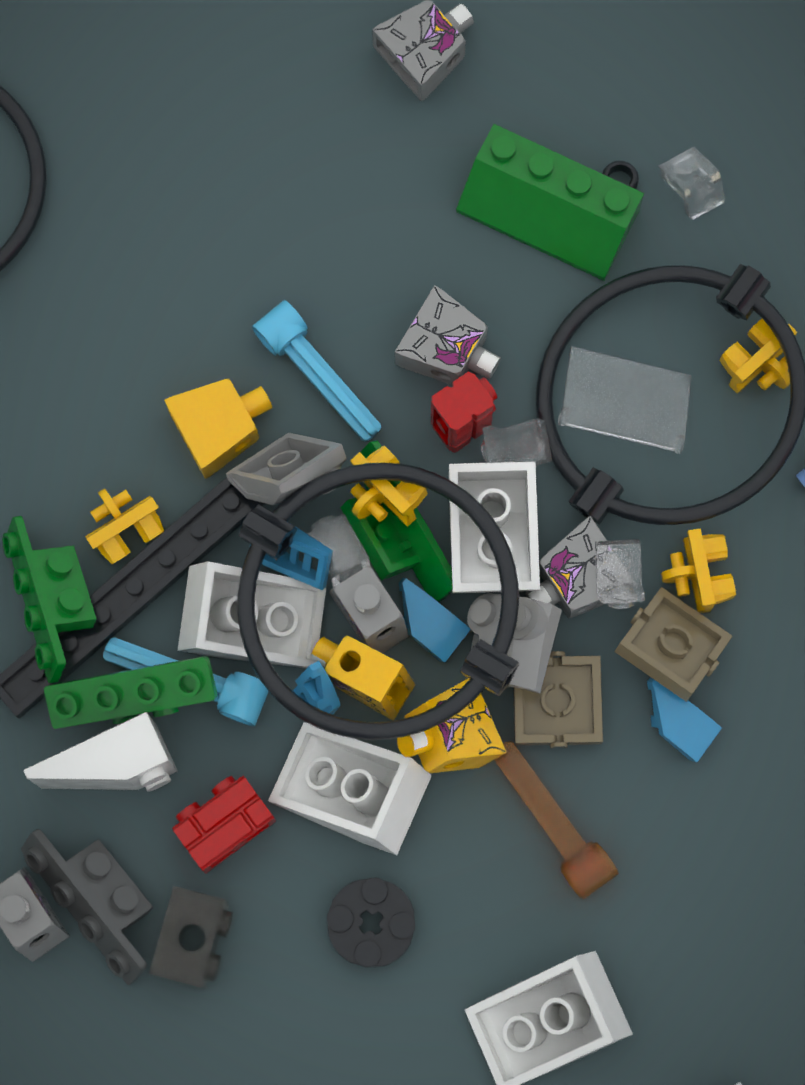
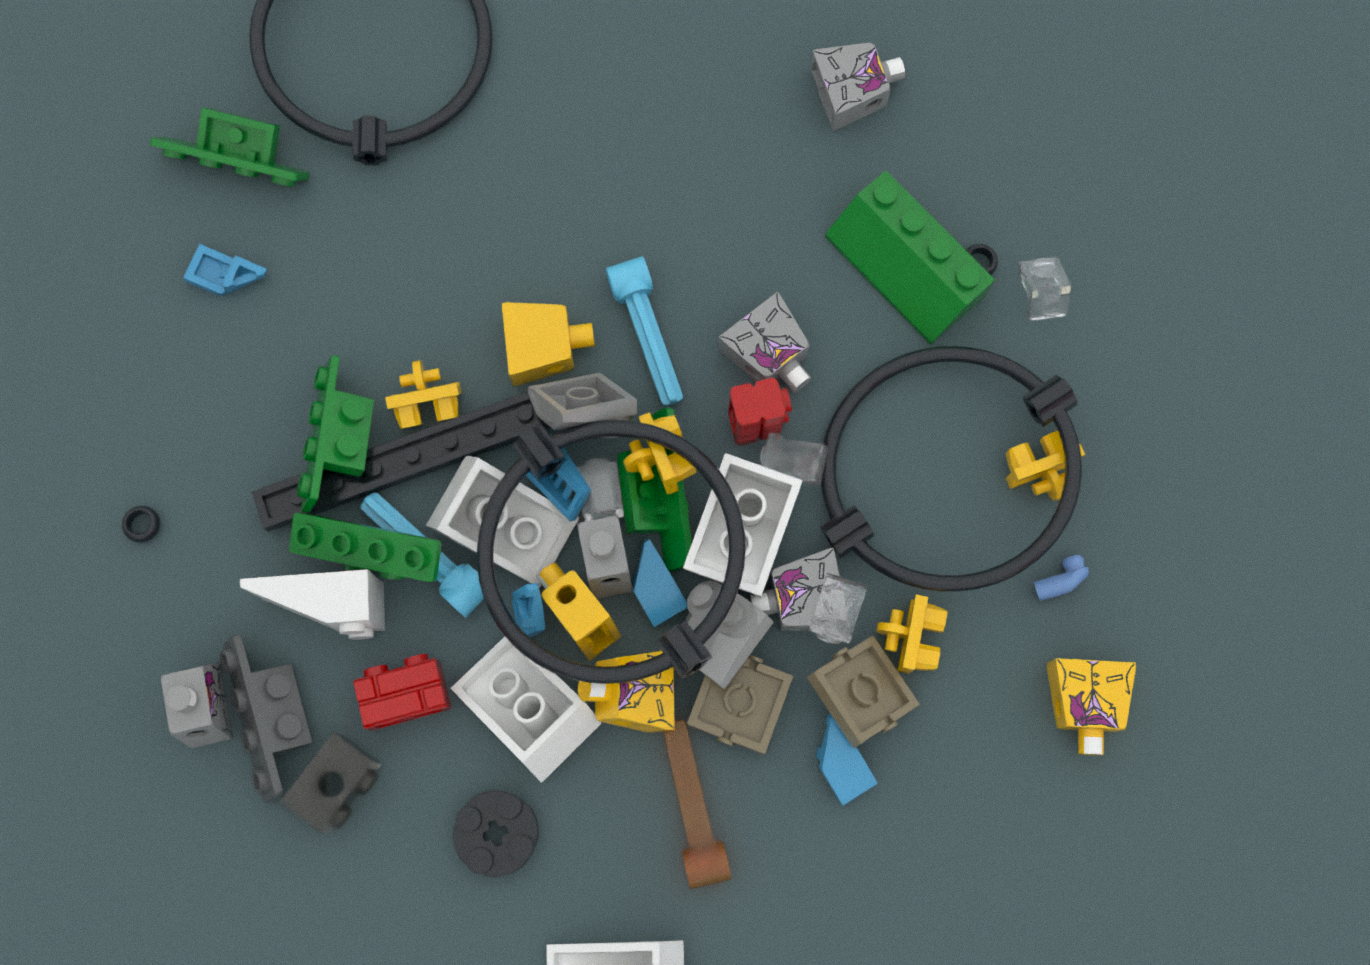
camera: 20 degrees right, 0 degrees up
(626, 399) = (907, 456): clear piece -> none

